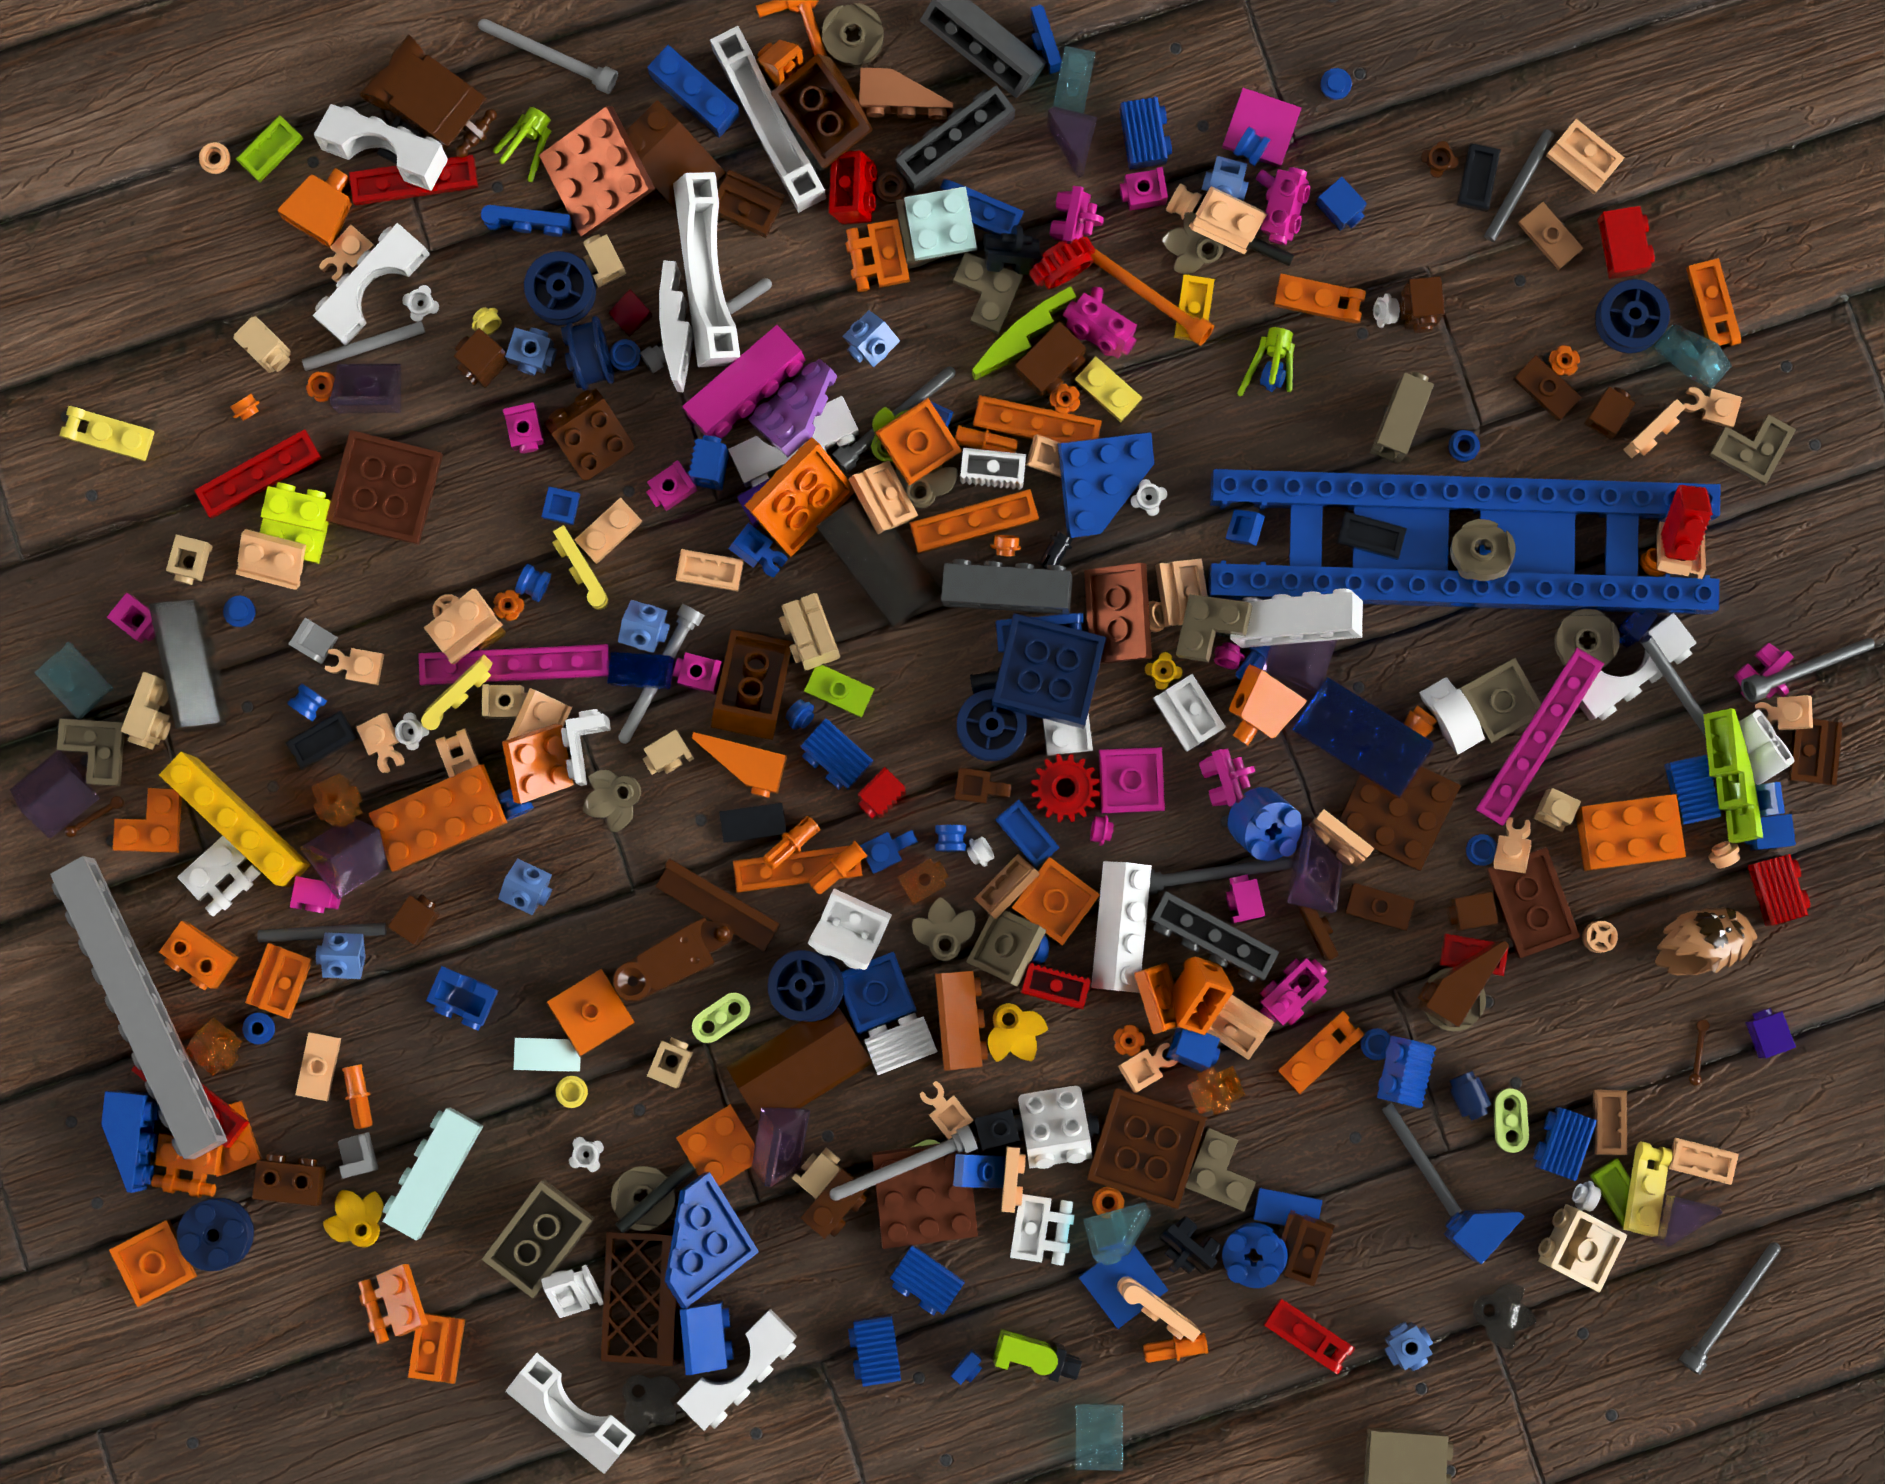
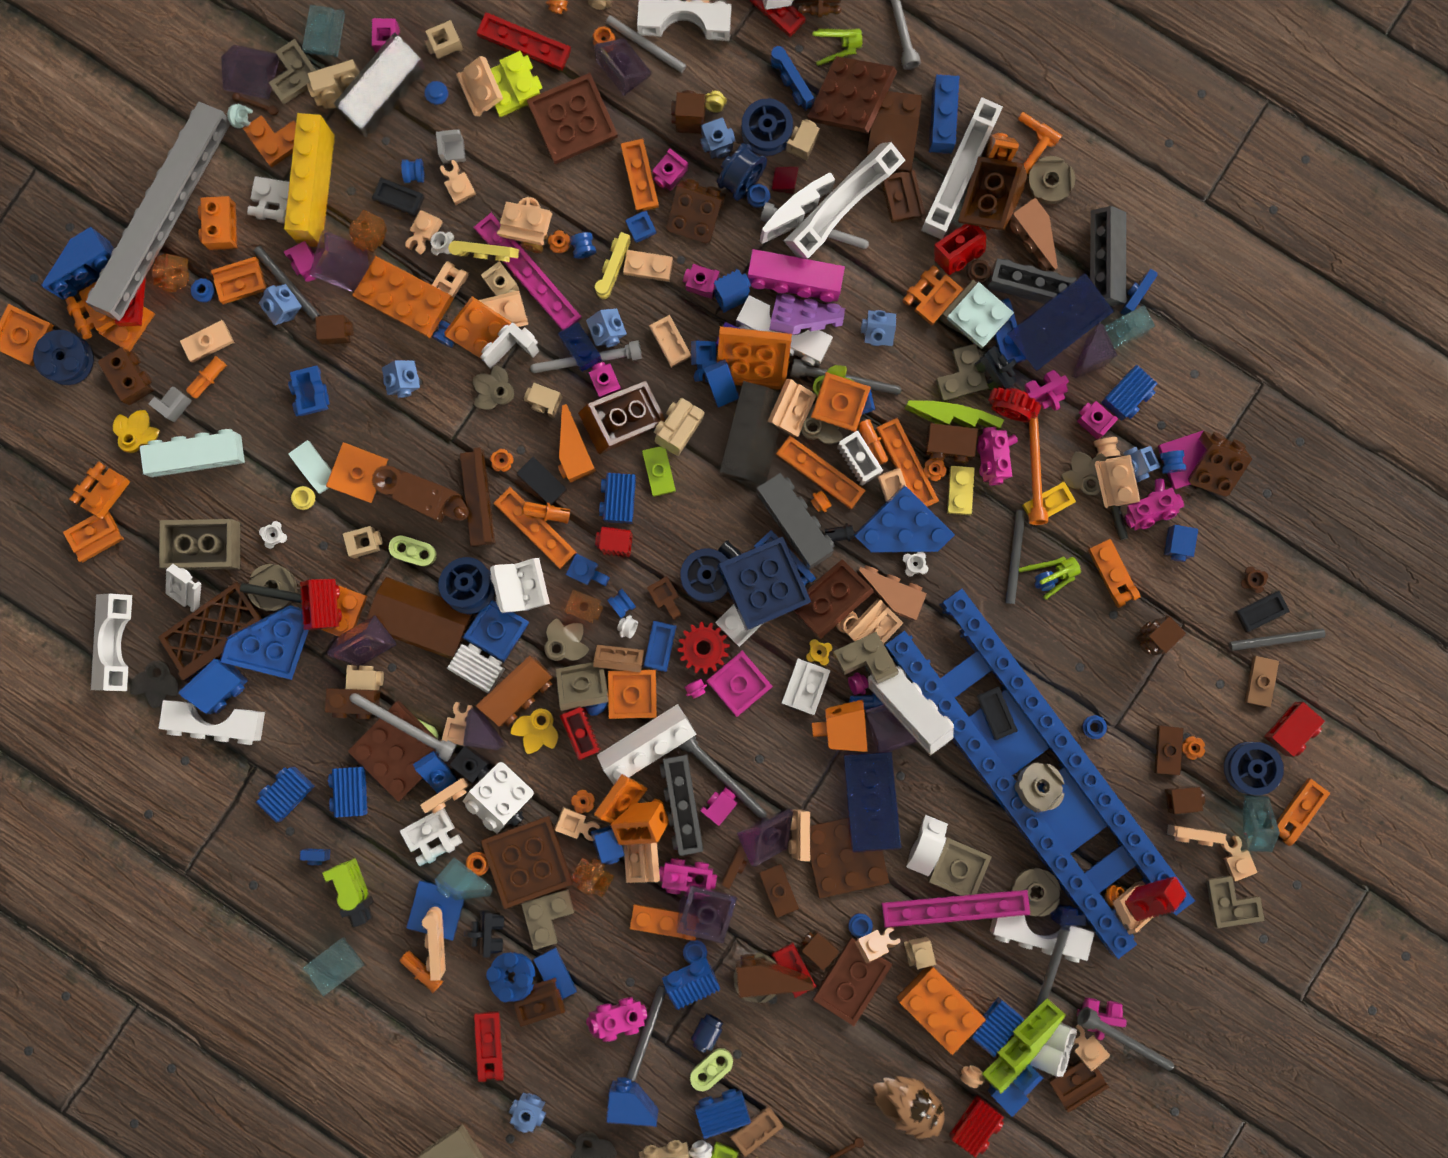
camera: 50 degrees right, 0 degrees up
(95, 844) = (238, 115): none -> light aqua plate
(421, 294) = (693, 50): white plate -> none
(504, 463) = (639, 175): none -> orange plate
(689, 844) = (501, 454): none -> orange plate
(705, 1156) = (320, 604): none -> red brick
(799, 551) = (721, 383): none -> blue tile
(800, 714) = (626, 459): blue plate -> none
(837, 868) = (552, 550): orange axle -> none
(975, 1091) = (480, 732): none -> clear purple slope
(1015, 147) = (1060, 322): none -> clear blue plate
(1170, 543) = (899, 598): none -> nougat slope
(1222, 764) = (787, 741): dark pink hips -> none
(1223, 387) = (1015, 557): none -> dark grey bar
(1245, 527) = (942, 634): blue plate -> none
(1265, 824) = (773, 783): blue brick -> none
(1292, 99) = (1220, 464): none -> reddish brown bracket
(1336, 84) = (1250, 483): blue plate -> none
(1345, 1000) = (705, 913): none -> slope
(1380, 1184) = (614, 1019): none -> dark pink brick
(1386, 310) = (1138, 618): white plate -> none
(1402, 417) = (1082, 676): dark tan brick -> none
(1420, 721) = (908, 829): orange cone -> none
(1585, 156) = (1325, 665): light nougat plate -> none
(1605, 934) = (864, 1042): light nougat wheel -> none

